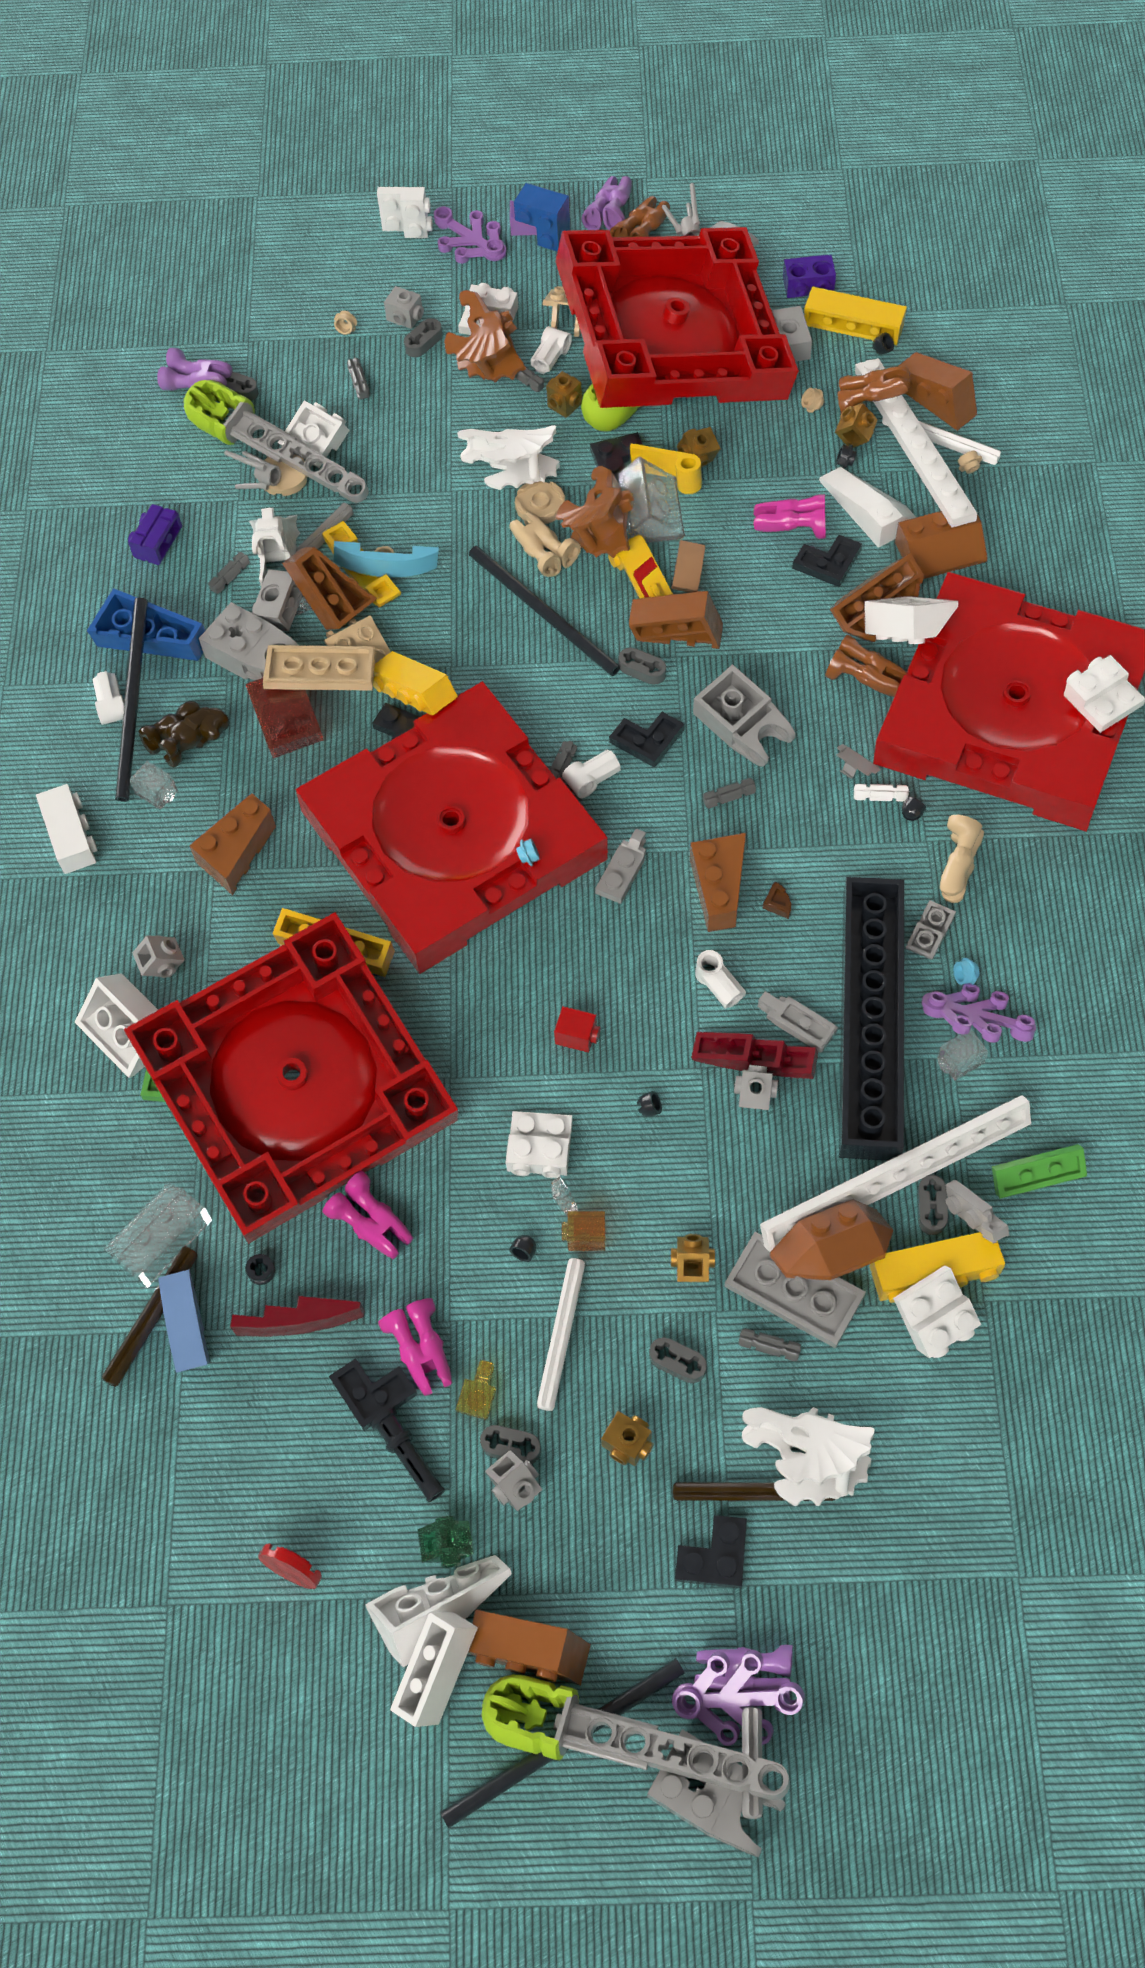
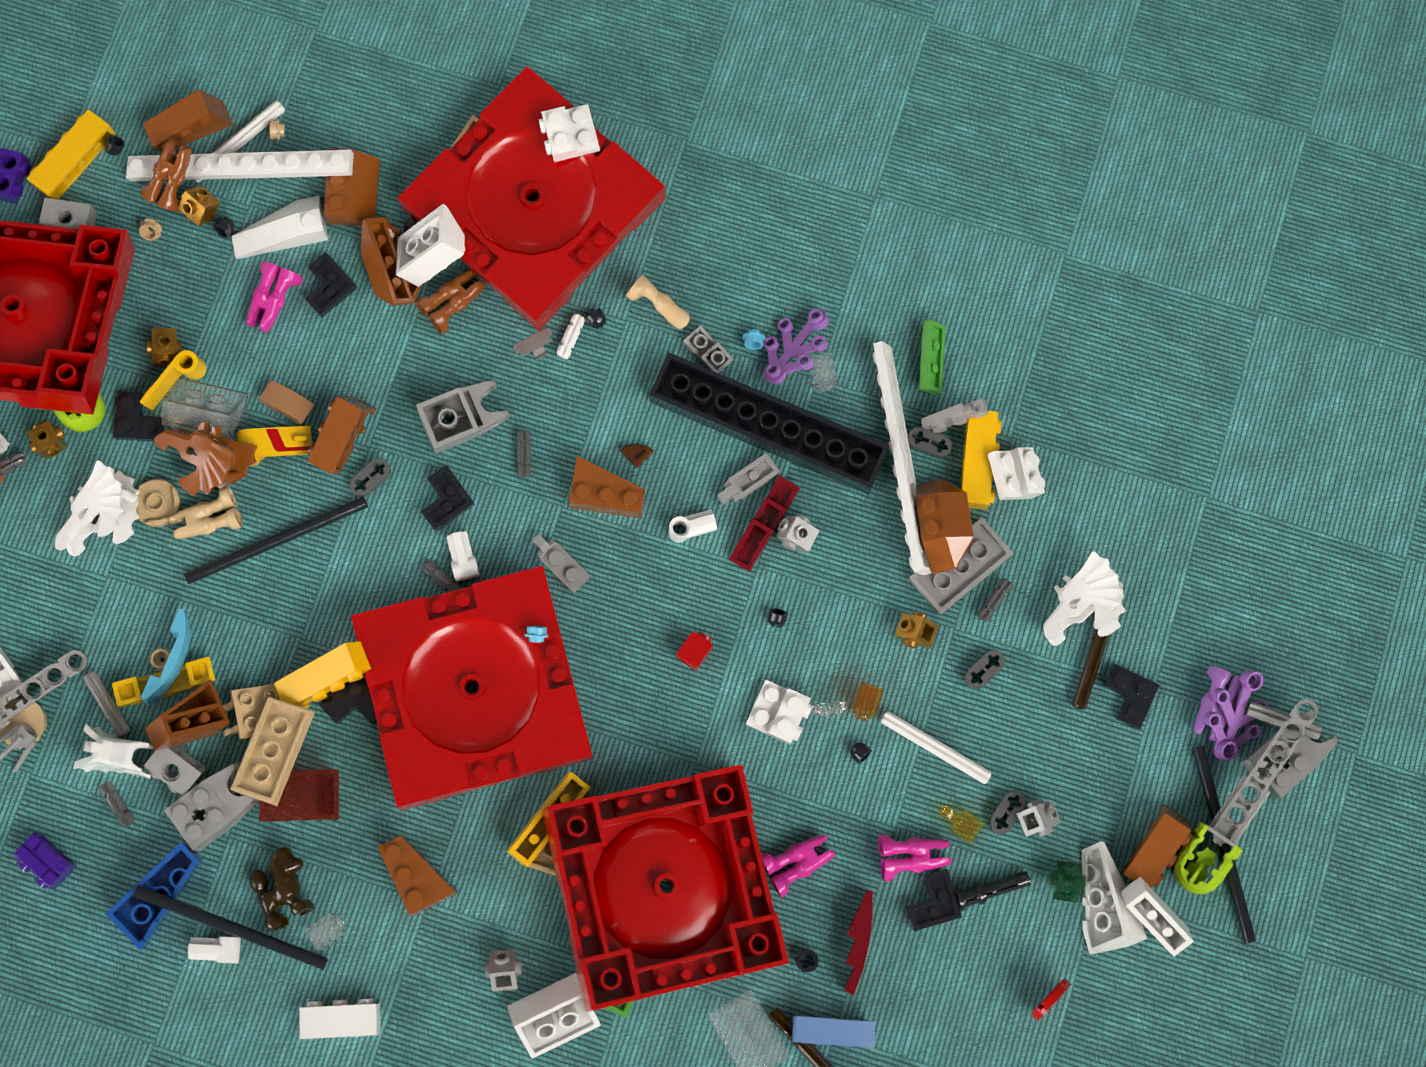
camera: 75 degrees left, 15 degrees up
(627, 1428) = (1029, 732): pearl gold brick -> none

